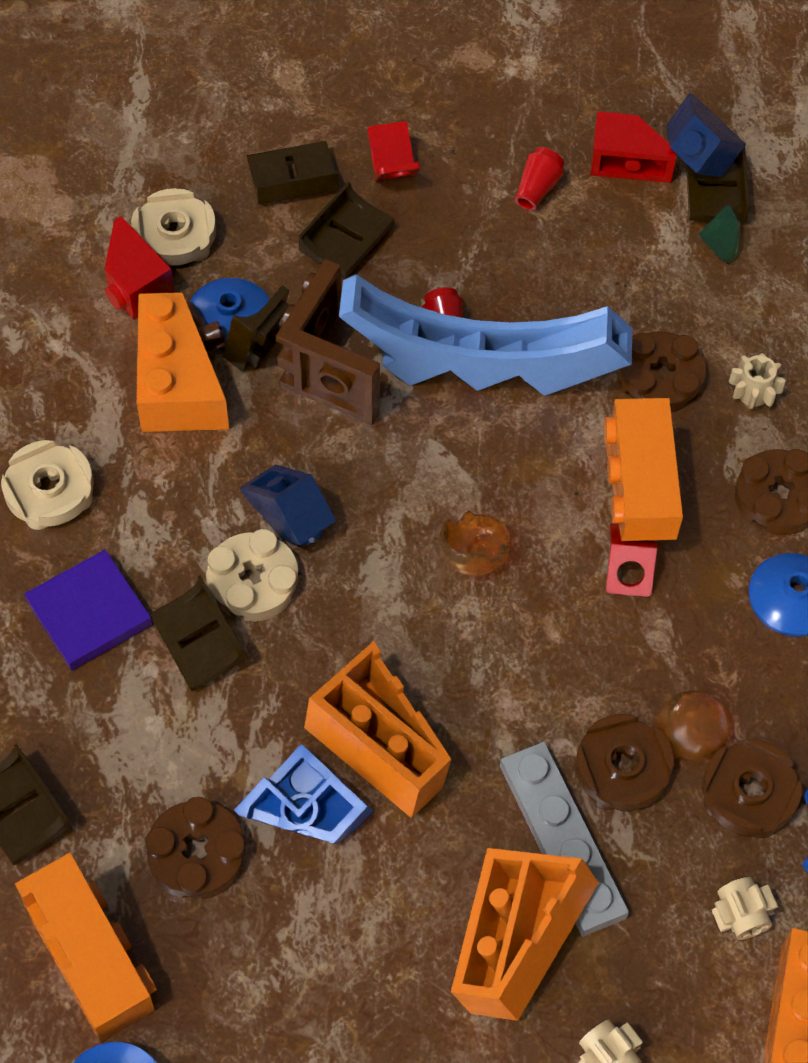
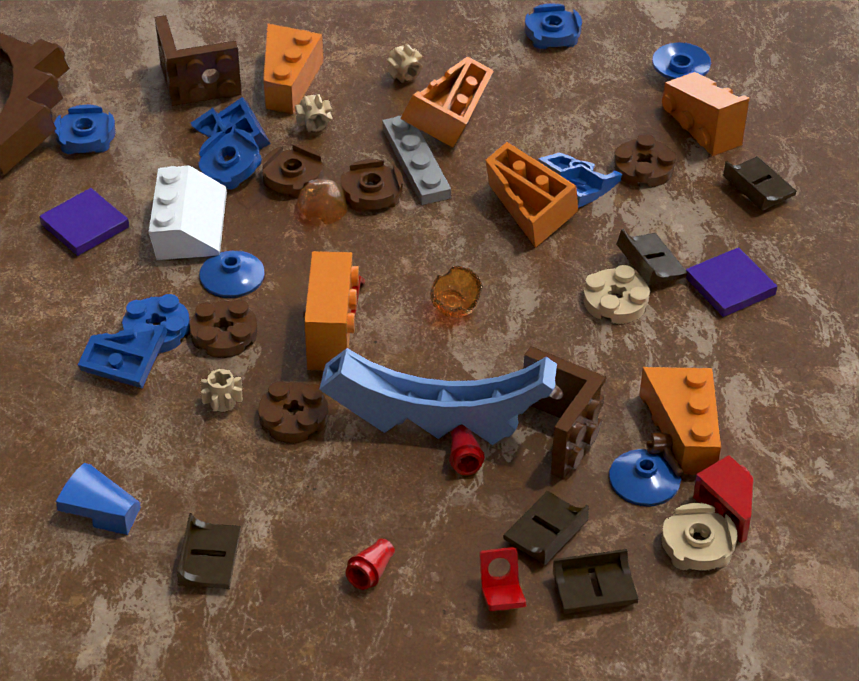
camera: 175 degrees left, 15 degrees down
(52, 506) = (770, 366): tan plate -> none
(255, 335) = (621, 422): dark brown piece -> none
(290, 504) = (593, 326): dark blue slope -> none
(630, 149) = (284, 582): red slope -> none
(702, 138) = (220, 560): dark blue slope -> none
(723, 234) = (217, 508): clear green tile -> none

